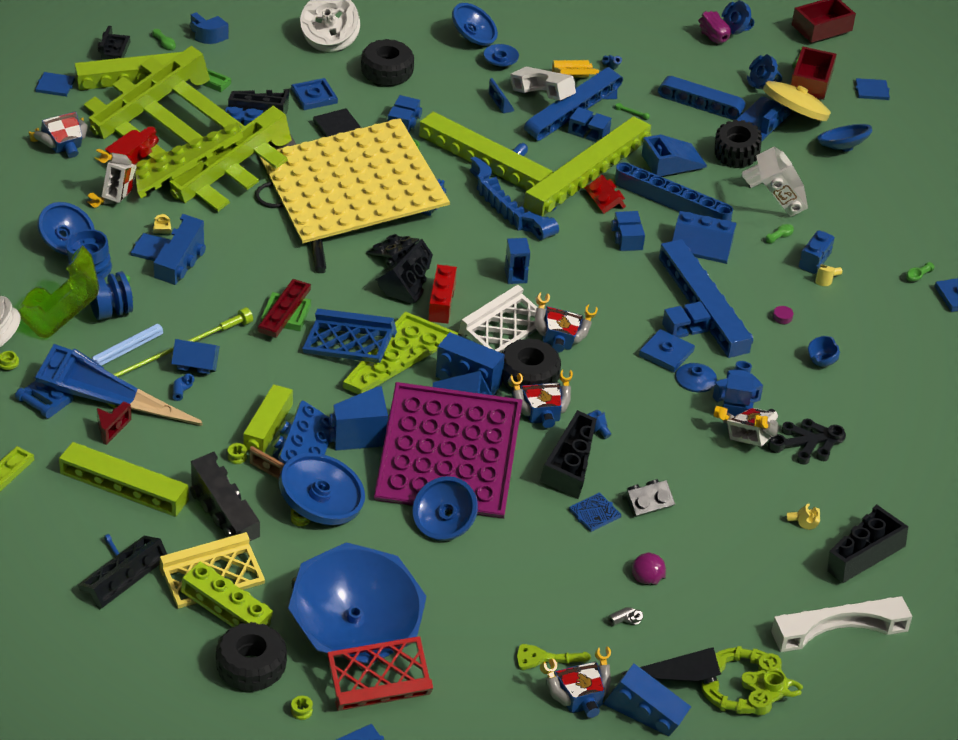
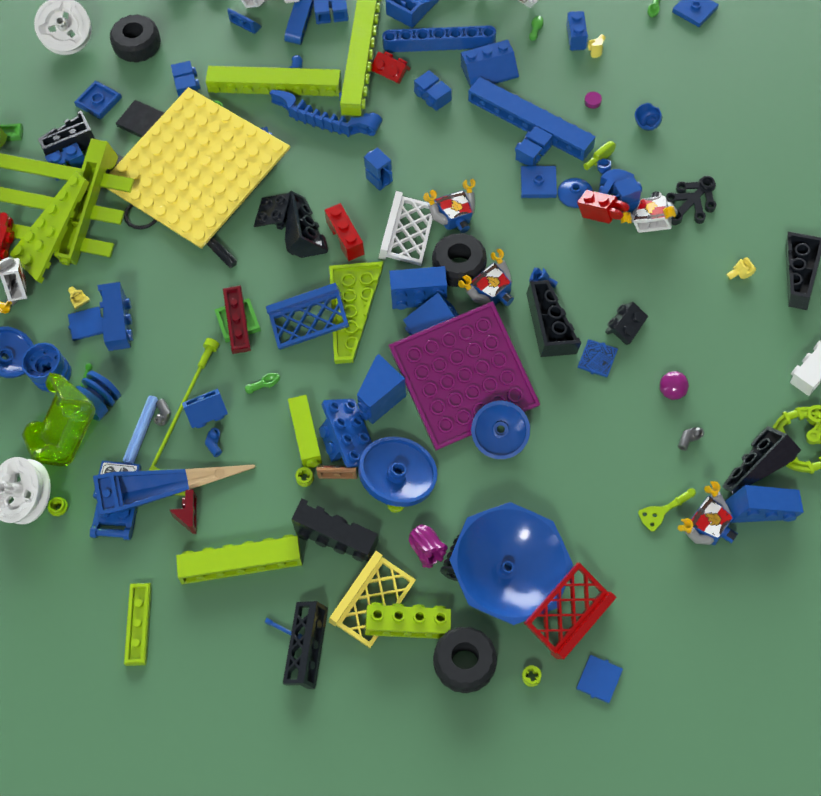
camera: 25 degrees left, 20 degrees up
(153, 347) = (163, 417): none -> flat silver arm
(269, 368) = (267, 381): none -> bright green piece
(295, 552) = (427, 545): none -> magenta piece
(704, 392) = (601, 207): none -> red hinge
(755, 357) = (602, 153): none -> lime piece

